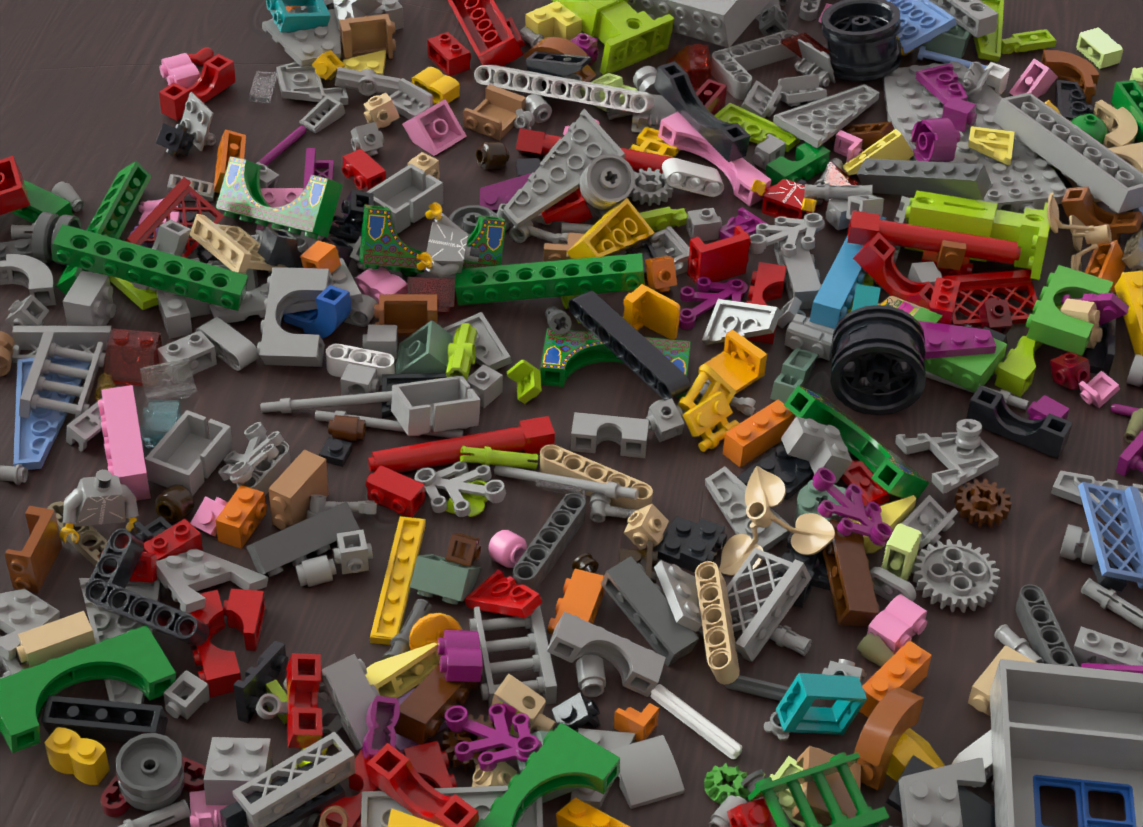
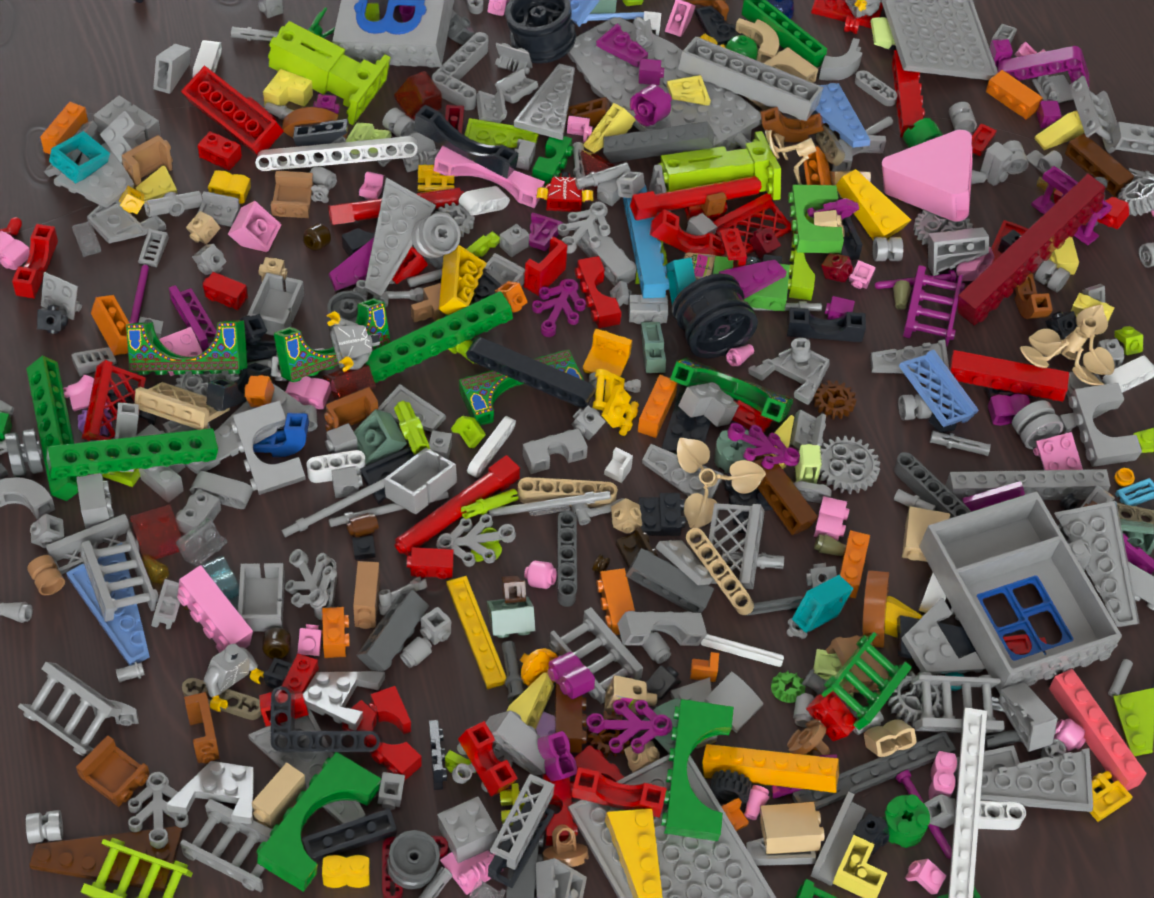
camera: 30 degrees left, 10 degrees up
(504, 597) = (563, 614): red wing -> none
(553, 316) = (465, 370): dark grey pin -> none
(564, 395) = (491, 446): none -> white beam
(652, 310) = (528, 334): light orange bracket -> none
(675, 478) = (619, 465): none -> white panel
(742, 317) = (593, 316): wing -> none
(792, 43) = (490, 46): clear red piece -> none
(892, 418) = (738, 355): none -> bright pink cone

